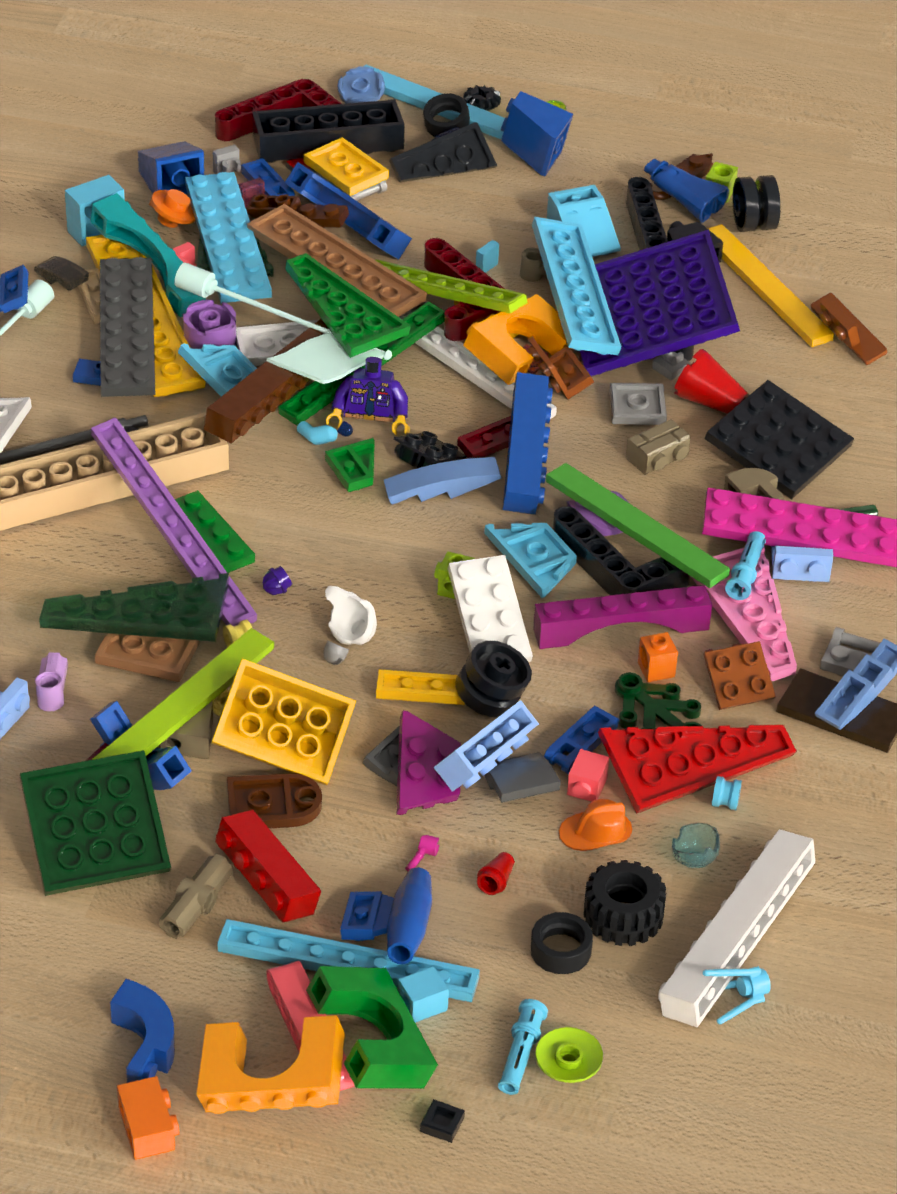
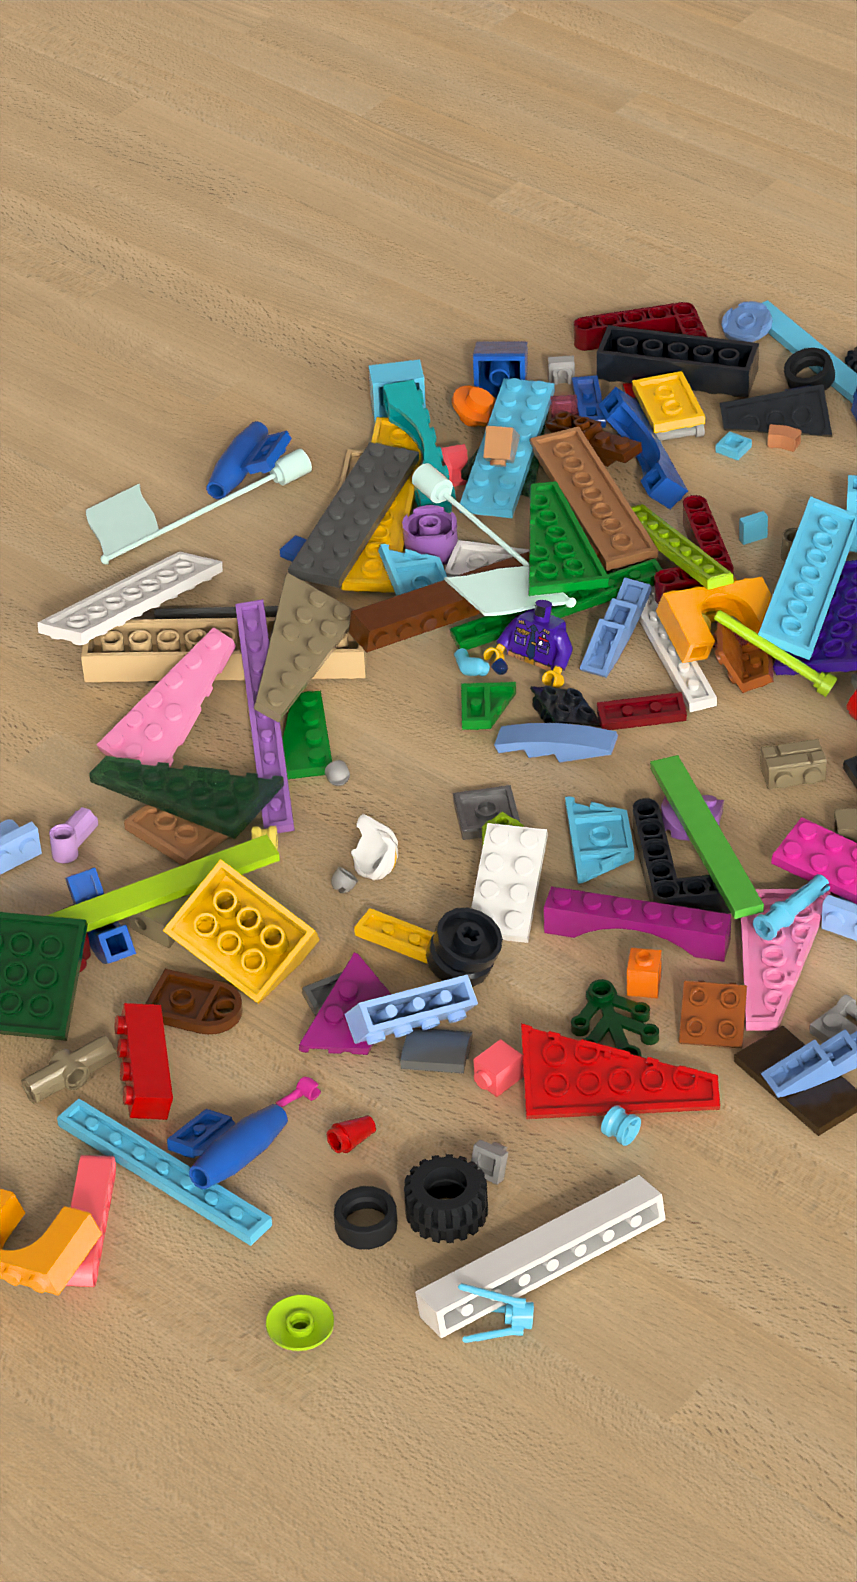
camera: 30 degrees right, 0 degrees up
(62, 271) = (333, 447): clear smoke slope -> none
(73, 544) = (171, 707): none -> bright pink wing
(172, 445) = (301, 641): none -> dark tan wing
(233, 233) = (500, 445): none -> slope
(263, 559) = (337, 773): none -> light grey hinge
(276, 581) = (334, 797): dark purple plate -> none
(372, 995) = (157, 1210): green arch -> none
(415, 557) = (480, 805): none -> flat silver tile
(418, 193) = (733, 445): none -> medium azure tile
(424, 993) = (206, 1223): medium azure panel -> none
(429, 369) = (616, 628): none -> medium blue slope
(442, 1121) = (151, 1344): black tile -> none
(457, 176) = (784, 437): none -> nougat piece
(526, 443) = (657, 725): blue brick -> none
(531, 1024) = (274, 1289): medium azure pin -> none
(580, 736) = (509, 1030): blue plate -> none
(596, 827) = (478, 1118): orange piece -> none
(635, 372) = (822, 681): none -> lime piece
(637, 403) = (805, 715): light grey plate -> none
(638, 852) = (491, 1159): none -> light grey tile
(696, 845) = (555, 1167): clear light blue hair -> none

